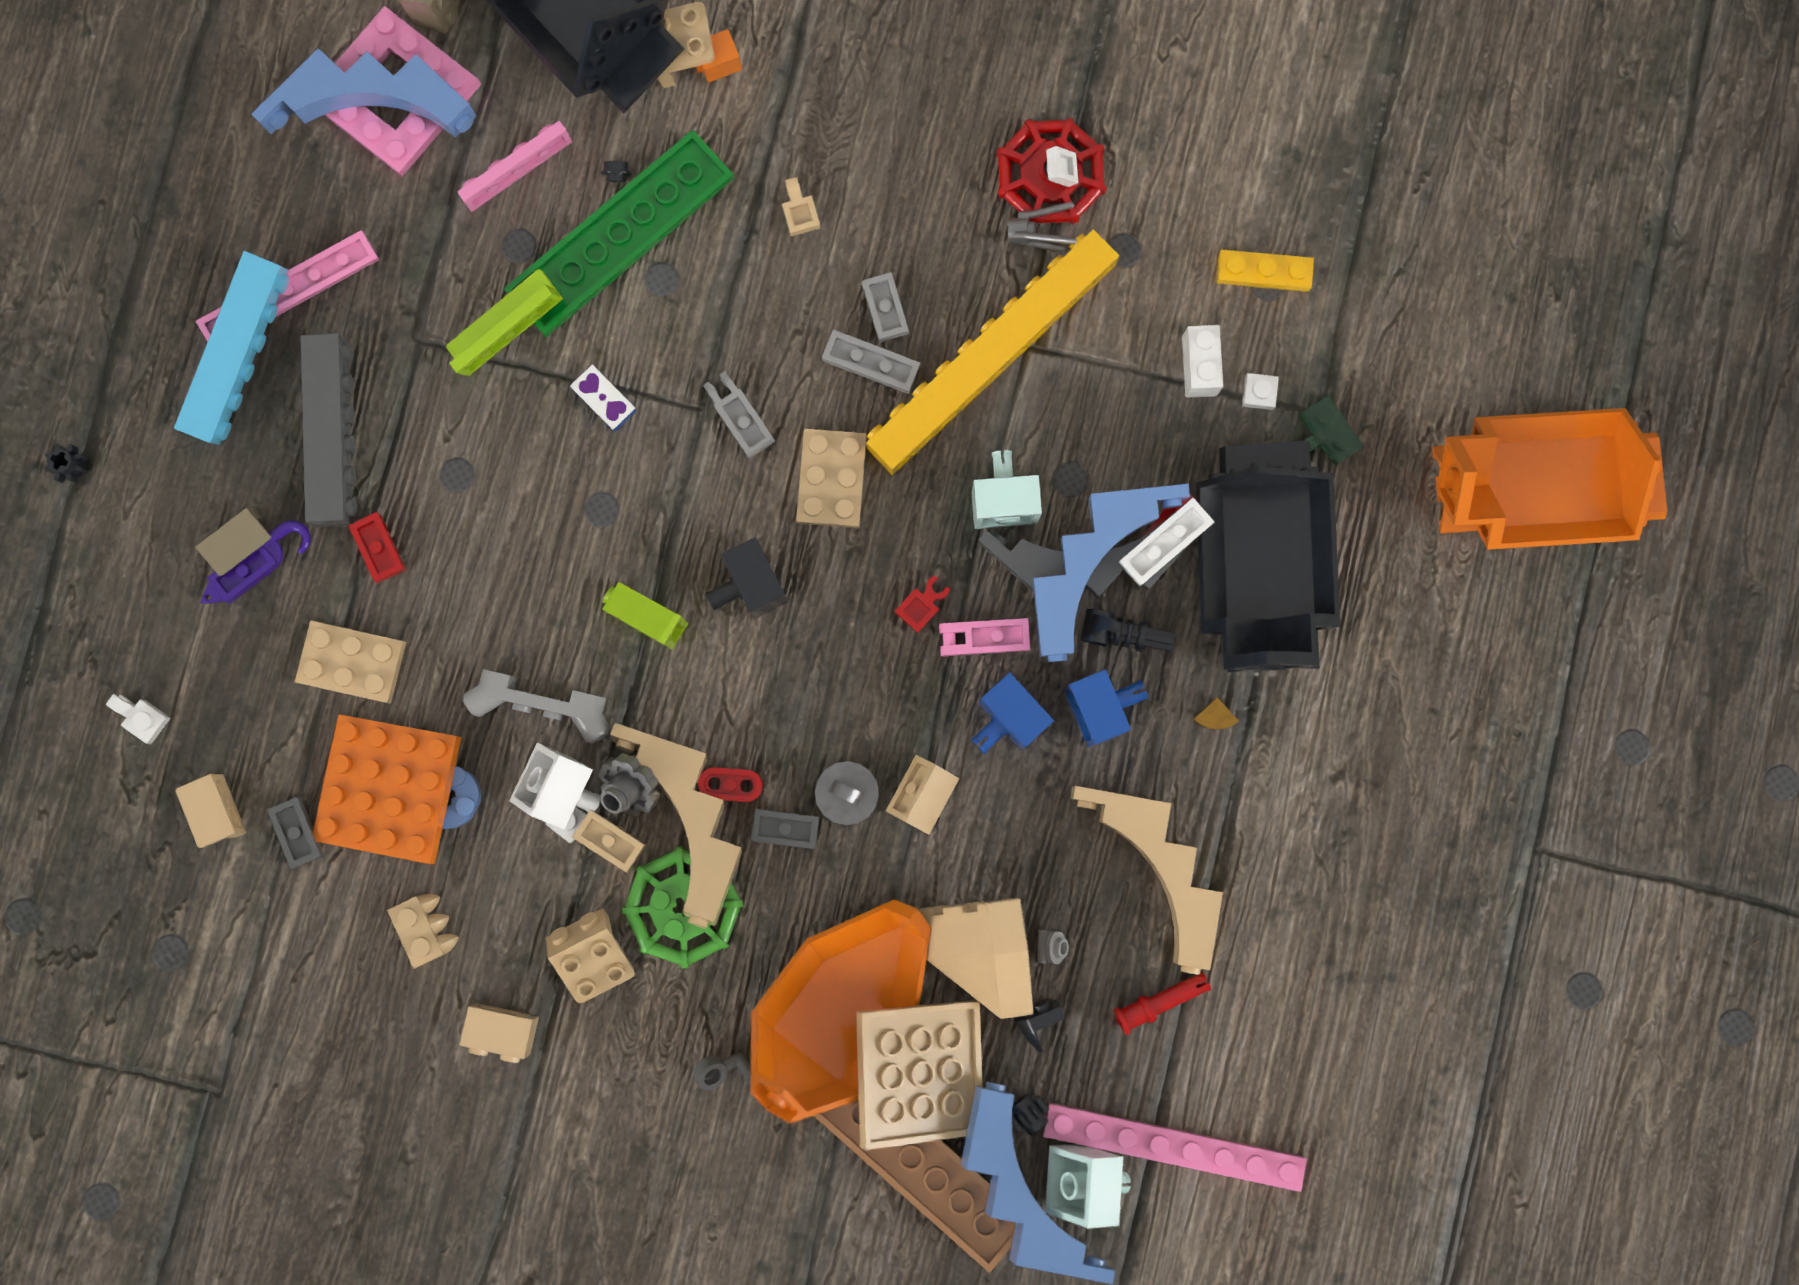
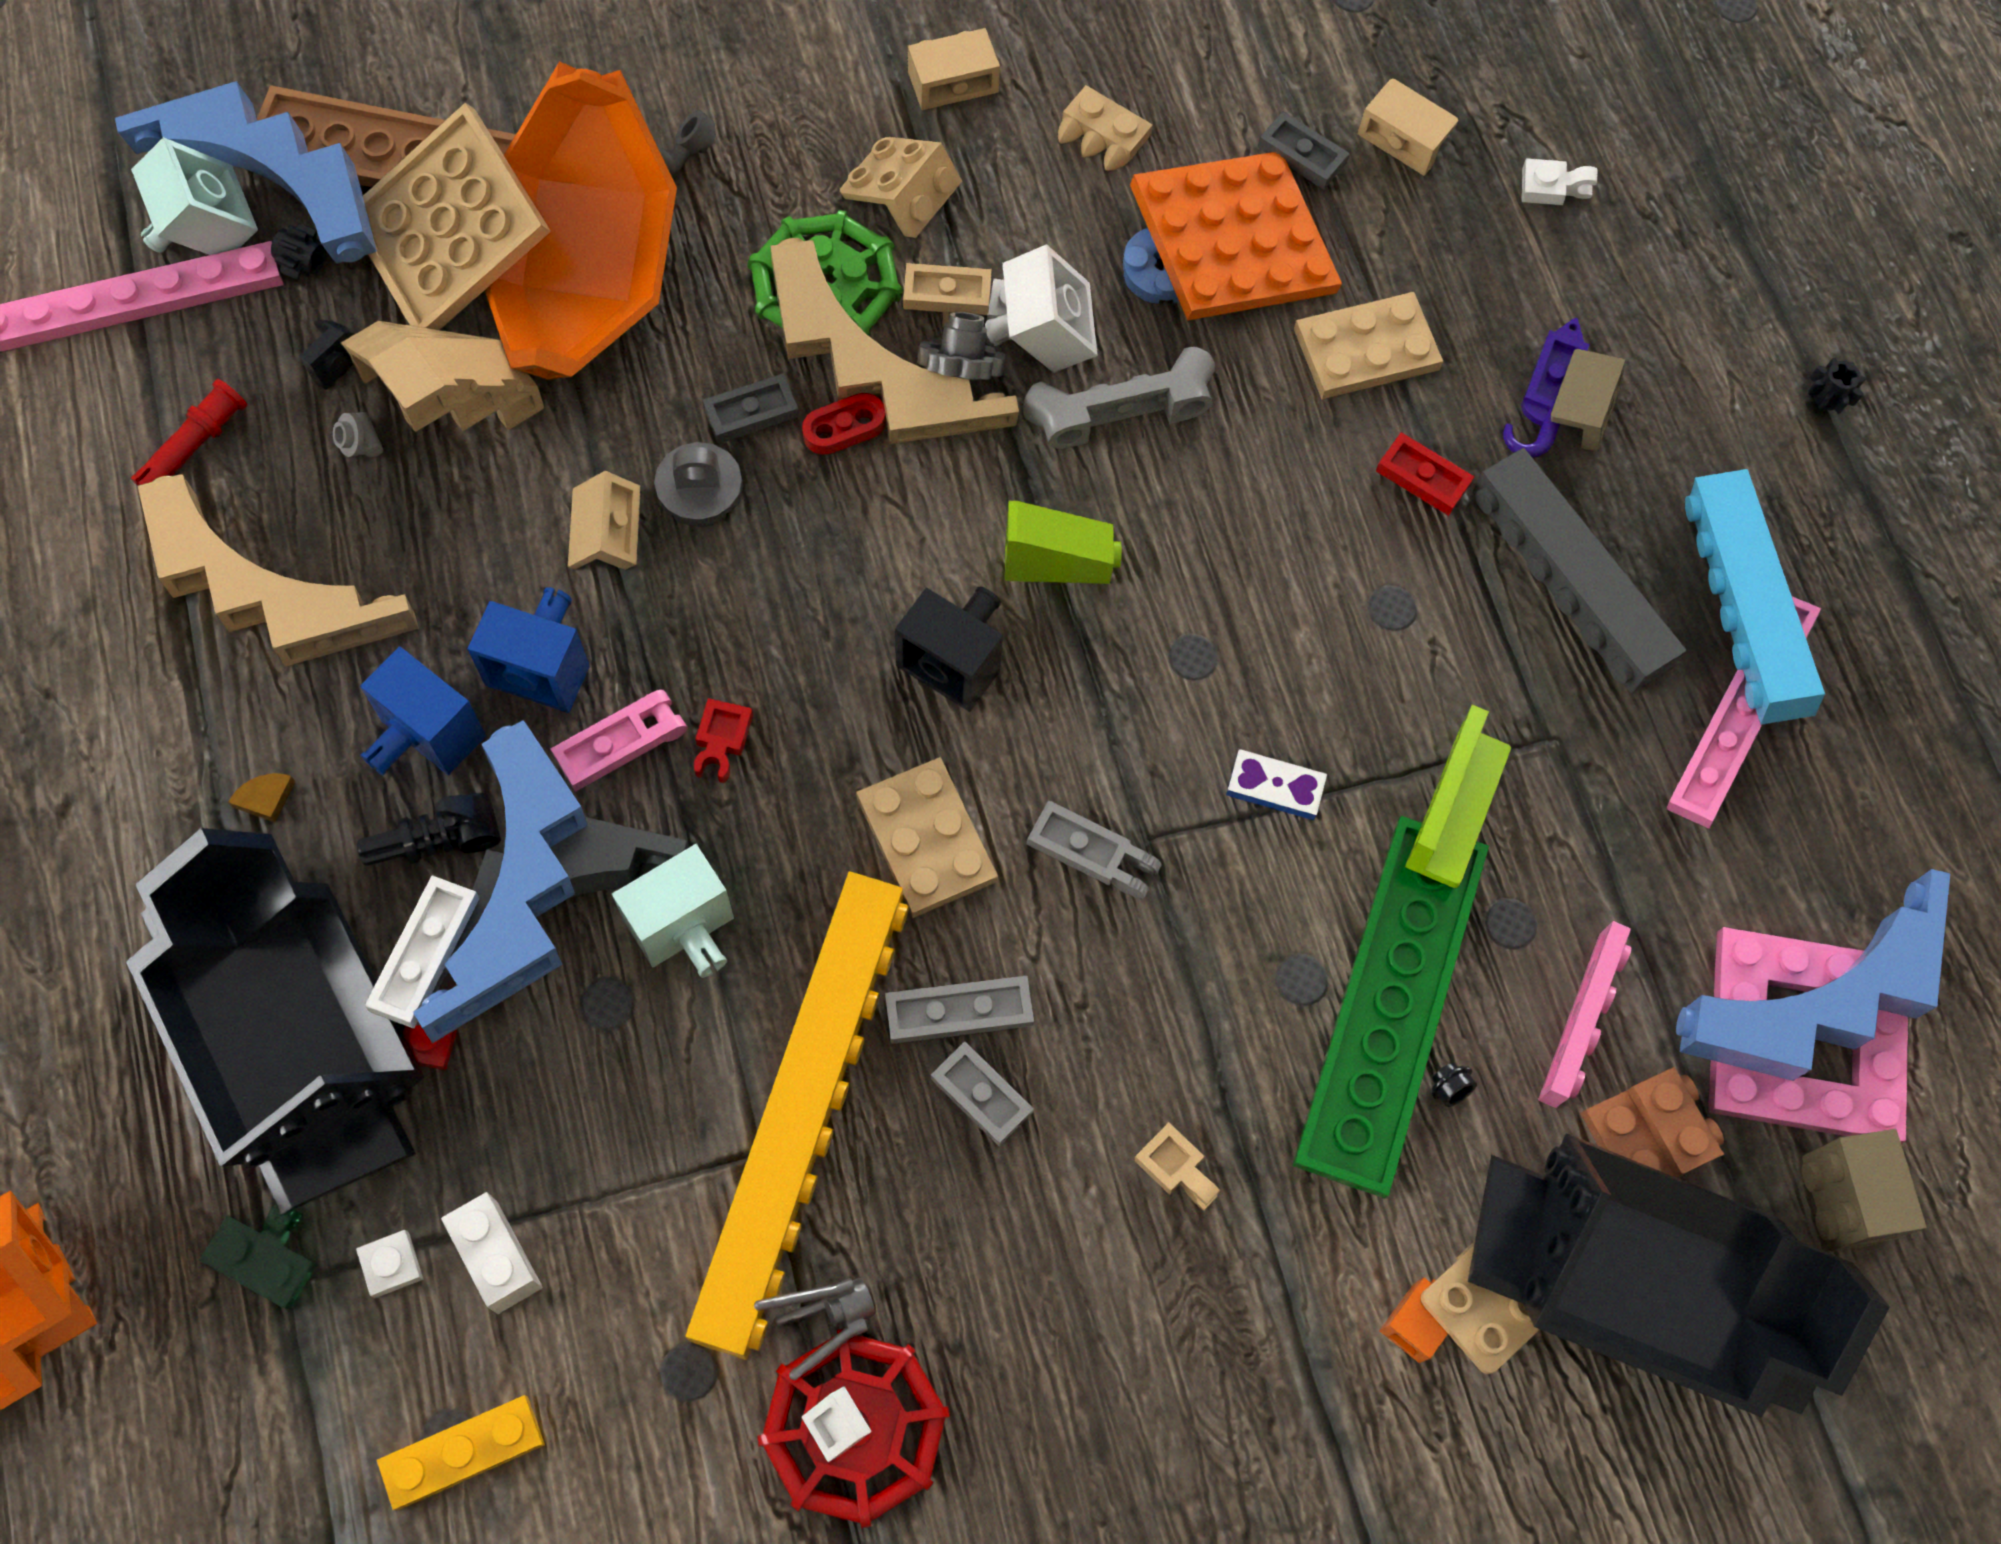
camera: 145 degrees right, 15 degrees down
(519, 87) = (1657, 1125): none -> nougat plate

